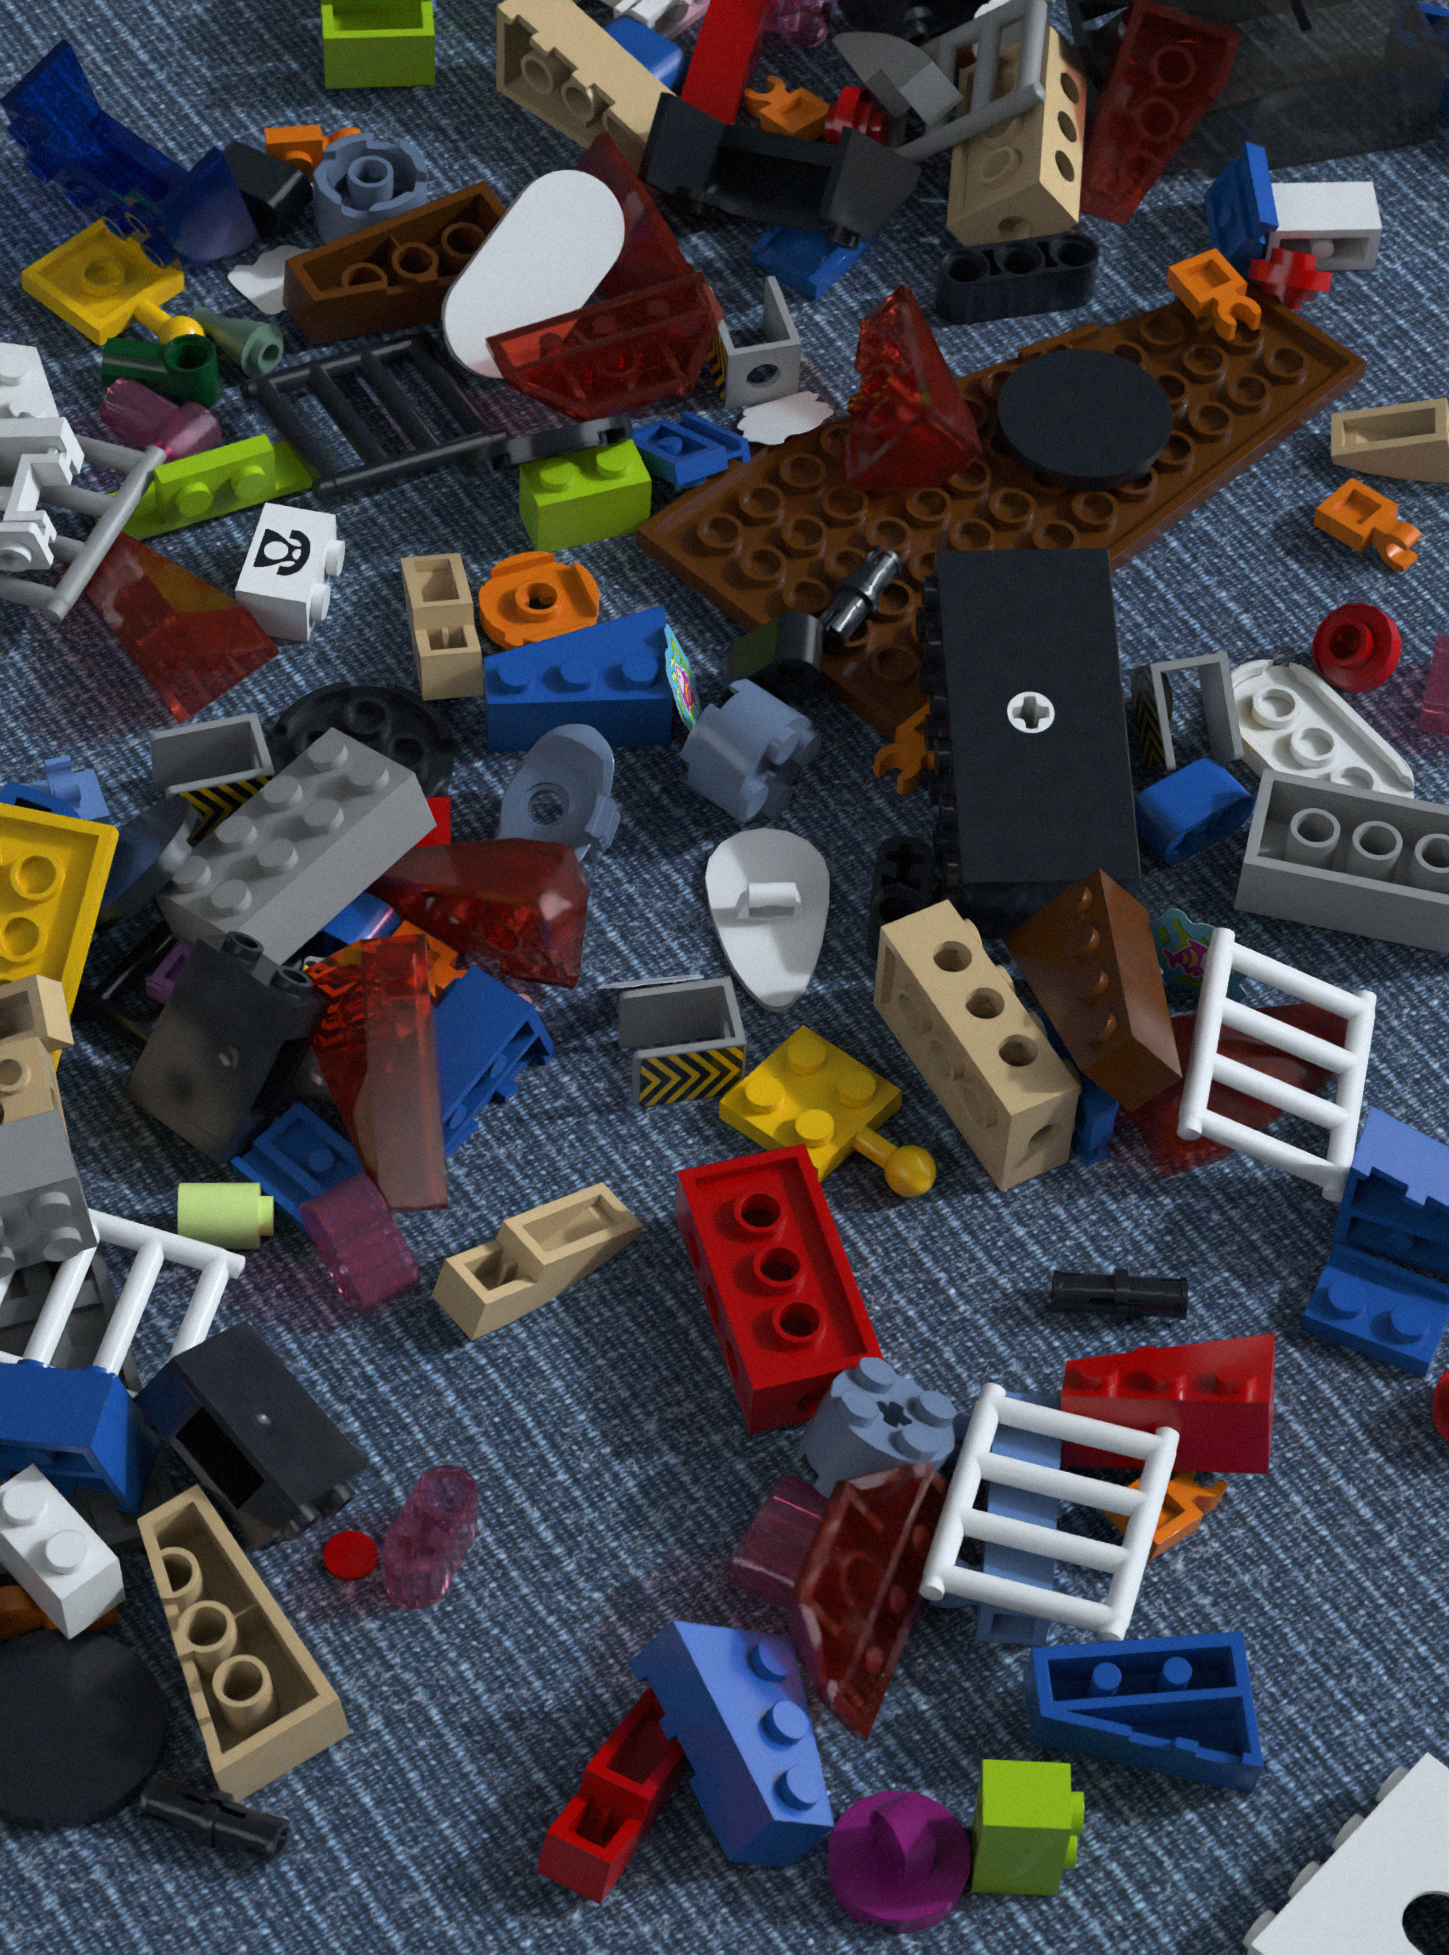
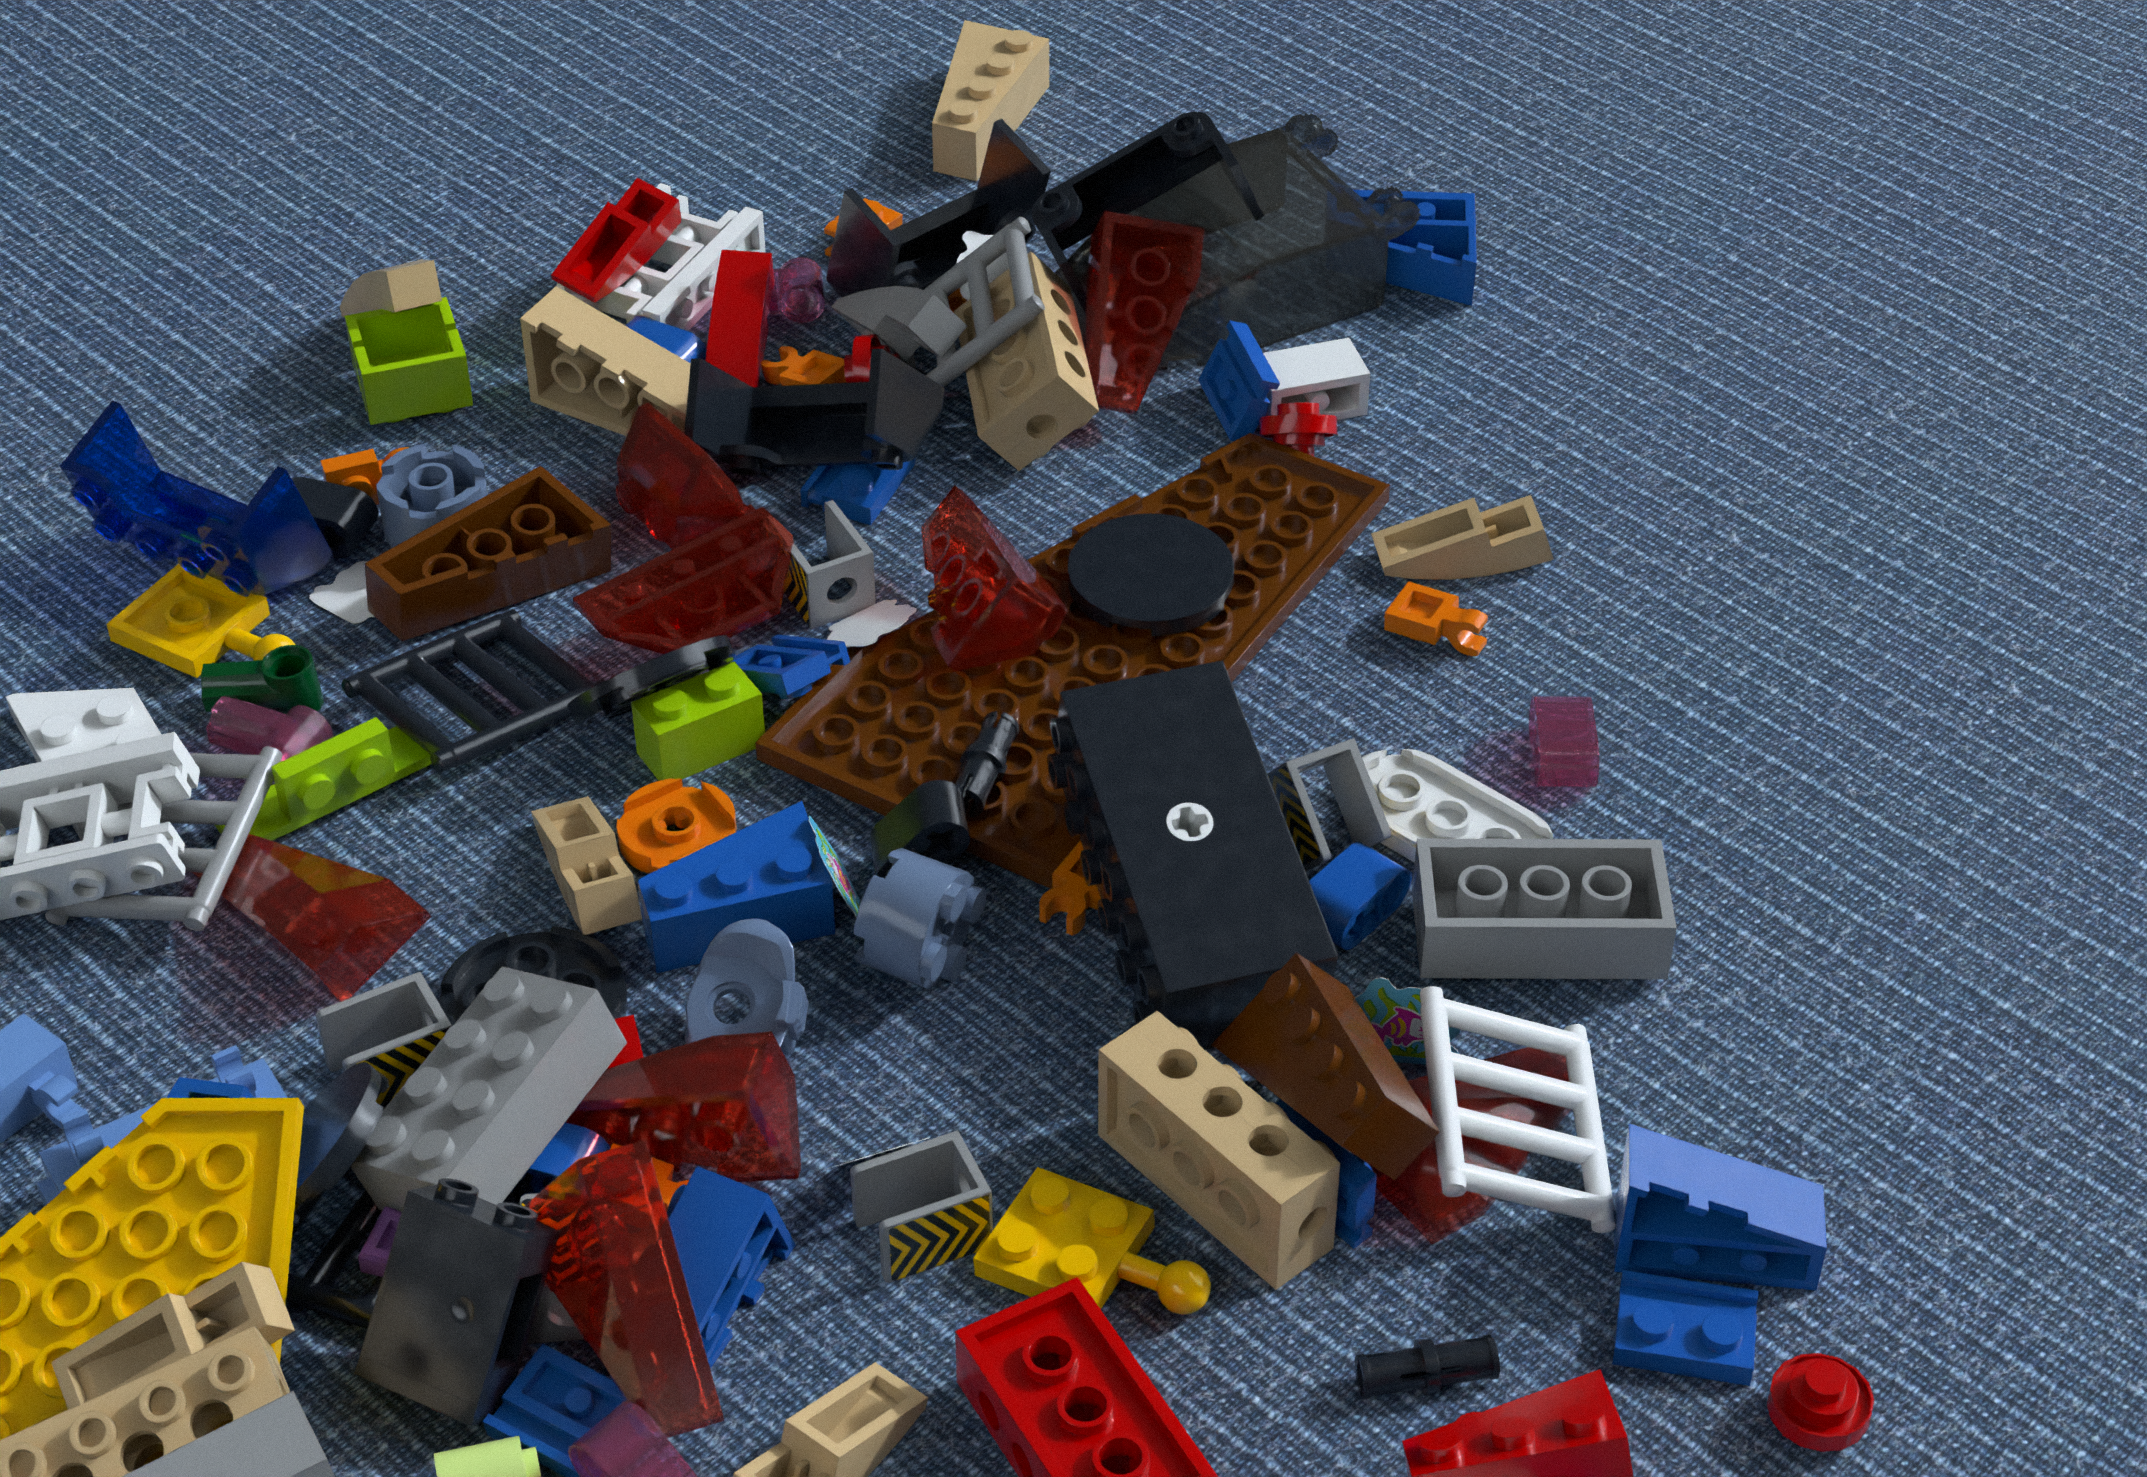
camera: 10 degrees left, 10 degrees down
(250, 344) = (340, 648): sand green cone -> none
(290, 570) = (425, 839): white brick -> none
(533, 264) = (603, 526): white tile -> none
(769, 911) = (973, 1068): white shield -> none
(898, 860) = (1095, 1018): black beam -> none
(1016, 278) = (1052, 471): black beam -> none
(1214, 287) = (1236, 444): orange plate -> none
(1356, 647) = (1461, 723): red plate -> none

